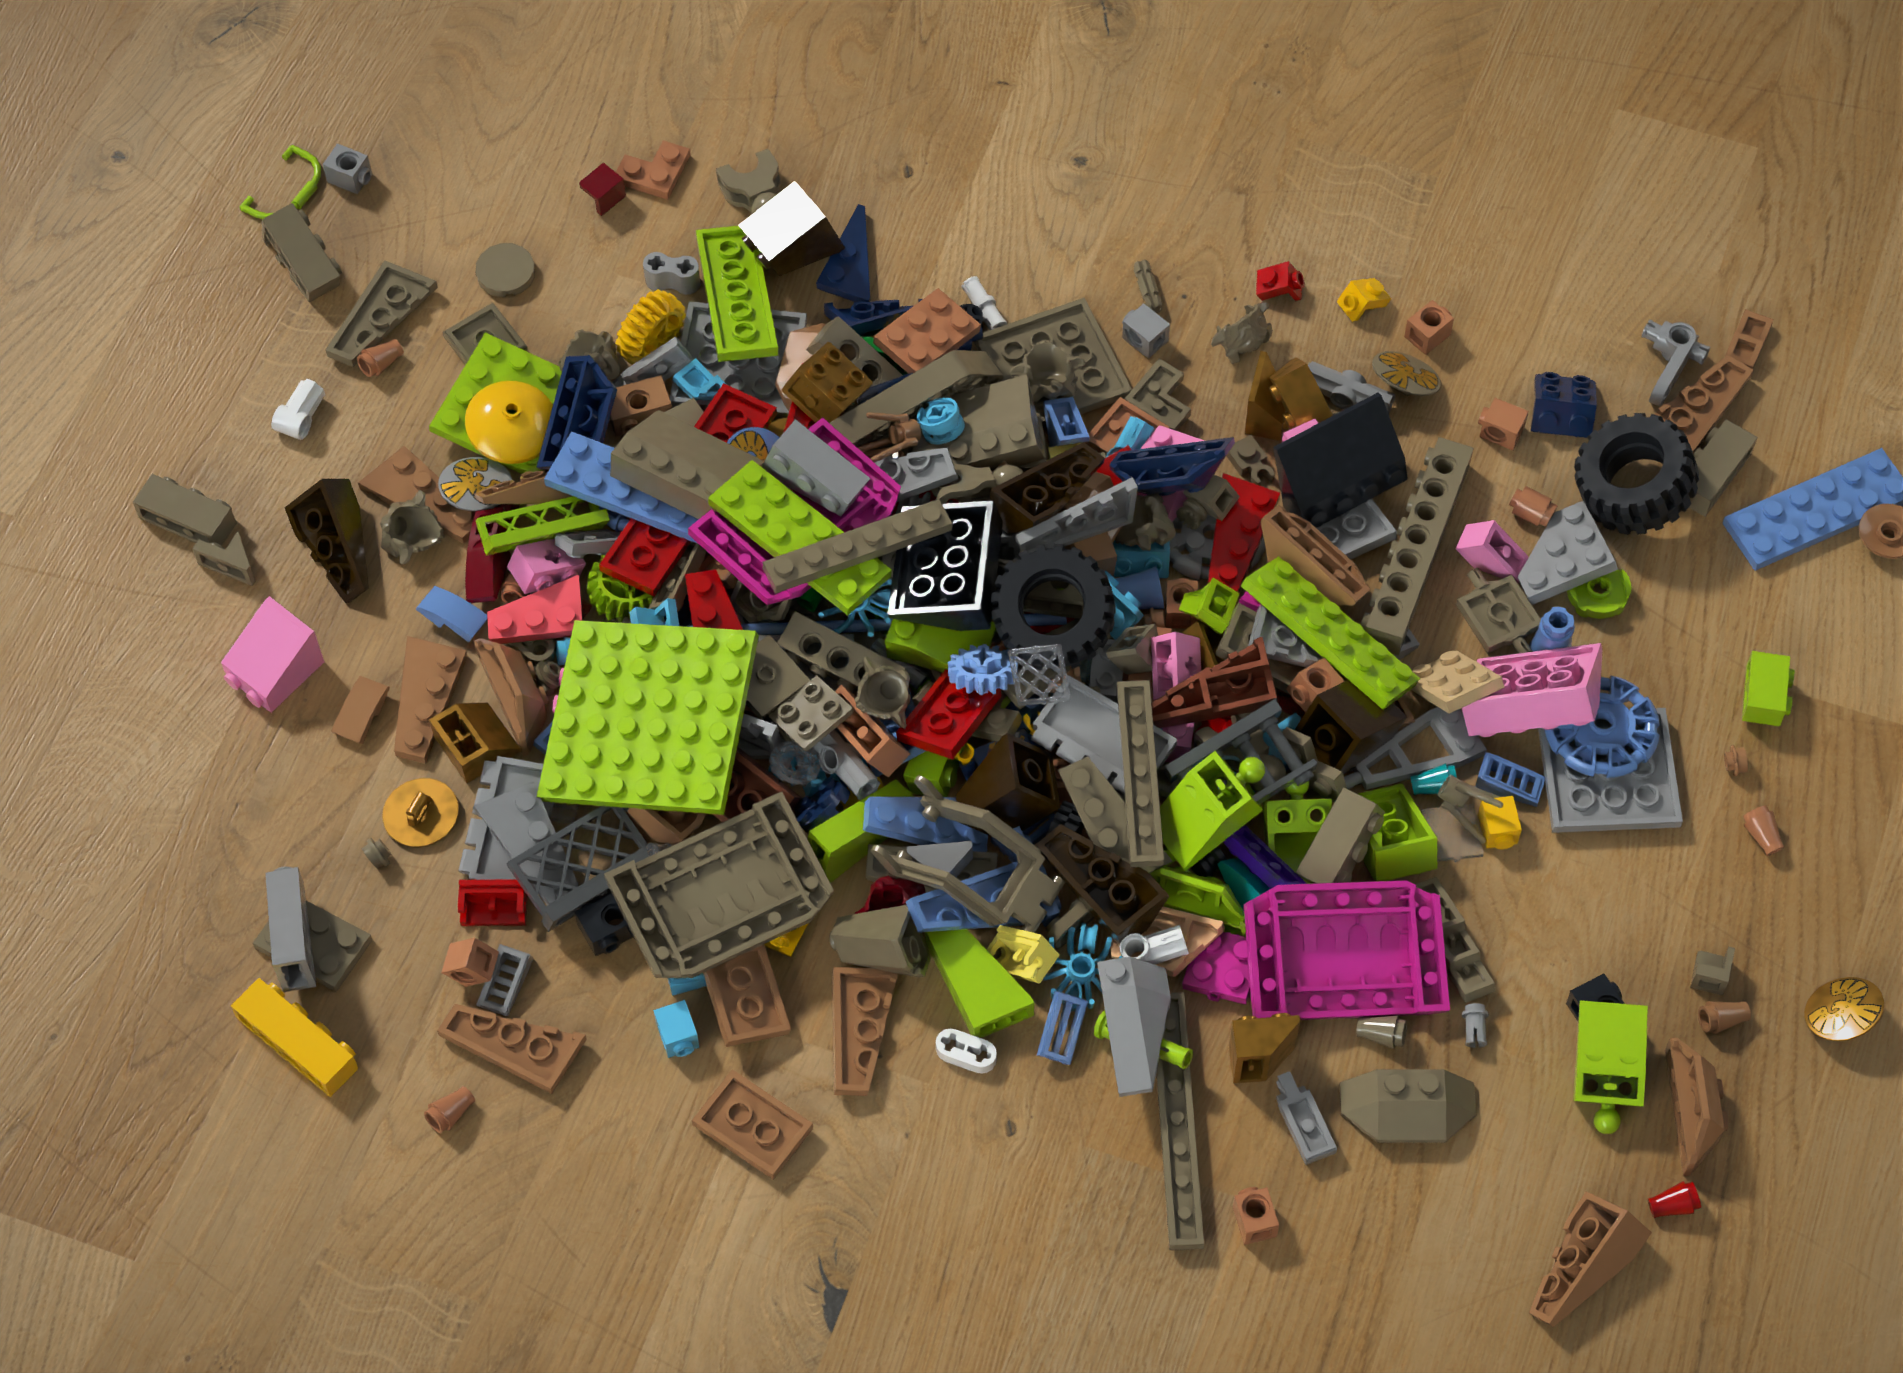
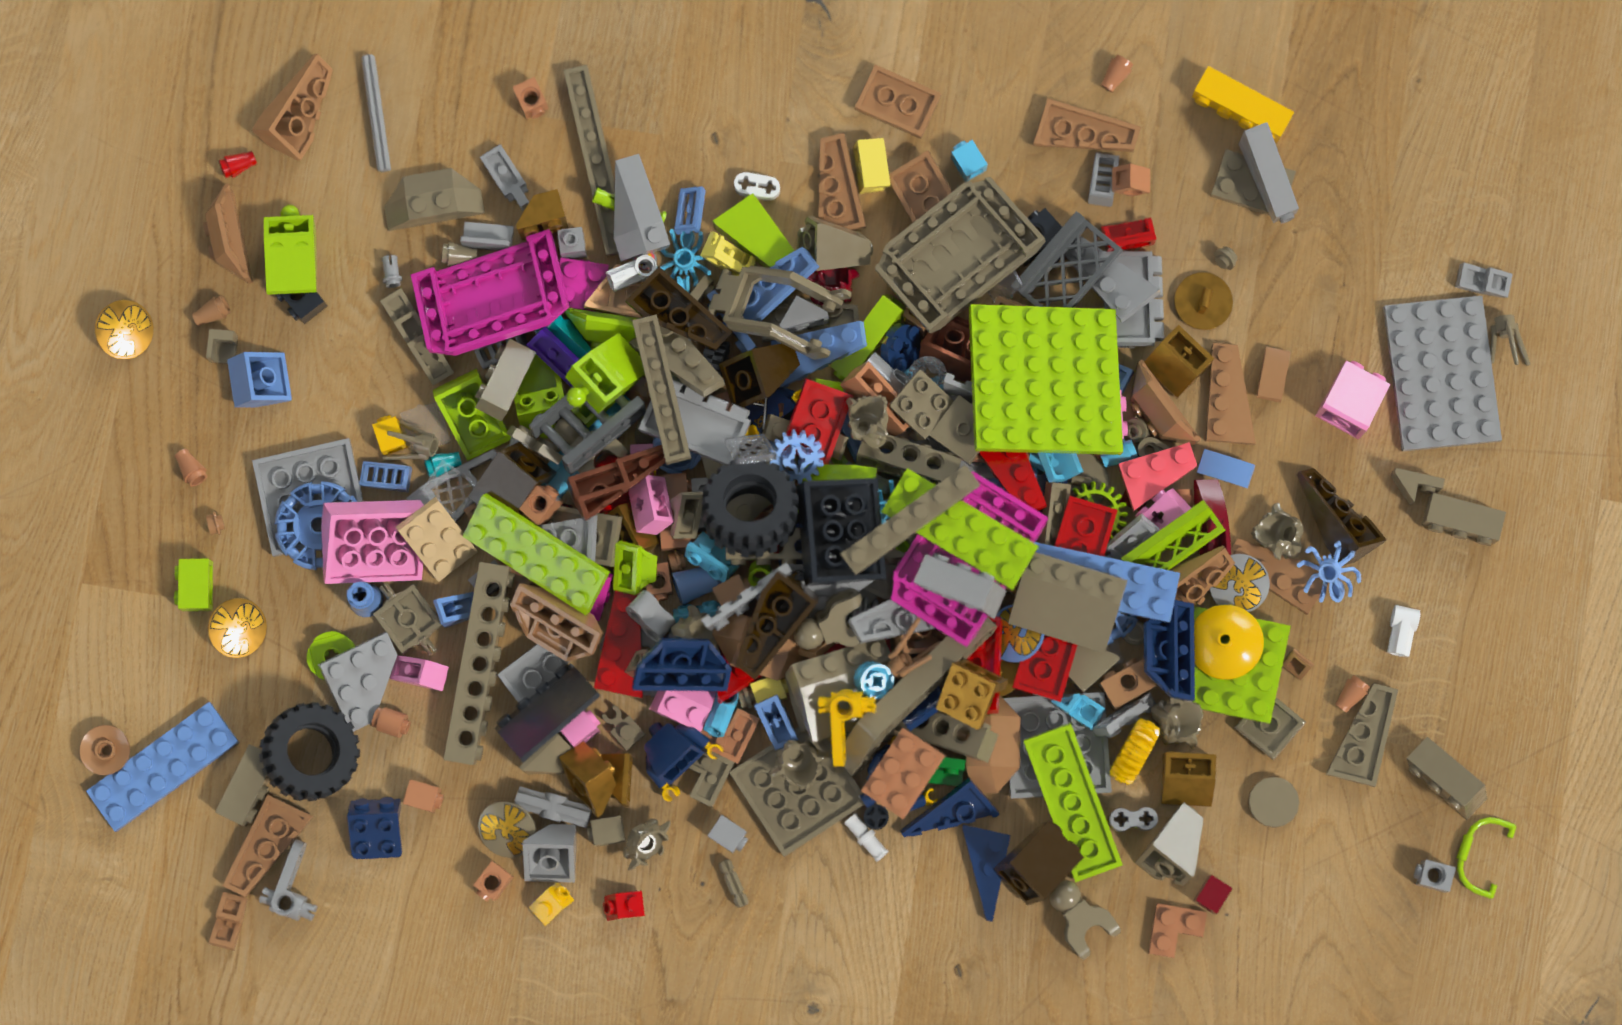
camera: 170 degrees right, 20 degrees up
(53, 712) = (1507, 328): none -> dark tan plant
(60, 775) = (1484, 281): none -> light grey slope
(151, 680) = (1442, 373): none -> light grey plate
(363, 468) = (1329, 572): none -> light blue animal
(428, 399) = (1297, 664): none -> medium nougat slope
(594, 303) = (1188, 779): none -> pearl gold slope
(629, 236) = (1175, 847): none -> slope
(807, 1046) = (871, 165): none -> light yellow hinge
(981, 386) = (839, 715): none -> yellow piece
(1194, 413) = (673, 752): none -> dark blue torso
(1197, 551) = (650, 615): none -> light grey axle
(1223, 1009) = (572, 243): none -> light grey brick
(1286, 347) = (606, 831): none -> dark tan brick
(1340, 1045) = (487, 236): none -> light grey panel
(1354, 343) = (551, 854): none -> light grey slope
(1440, 612) = (454, 609): none -> medium blue slope
(1442, 727) = (466, 500): none -> clear window
(1474, 1239) = (376, 113): none -> light grey axle
(1666, 917) = (259, 379): none -> medium blue slope
(1716, 634) = (237, 627): none -> shield

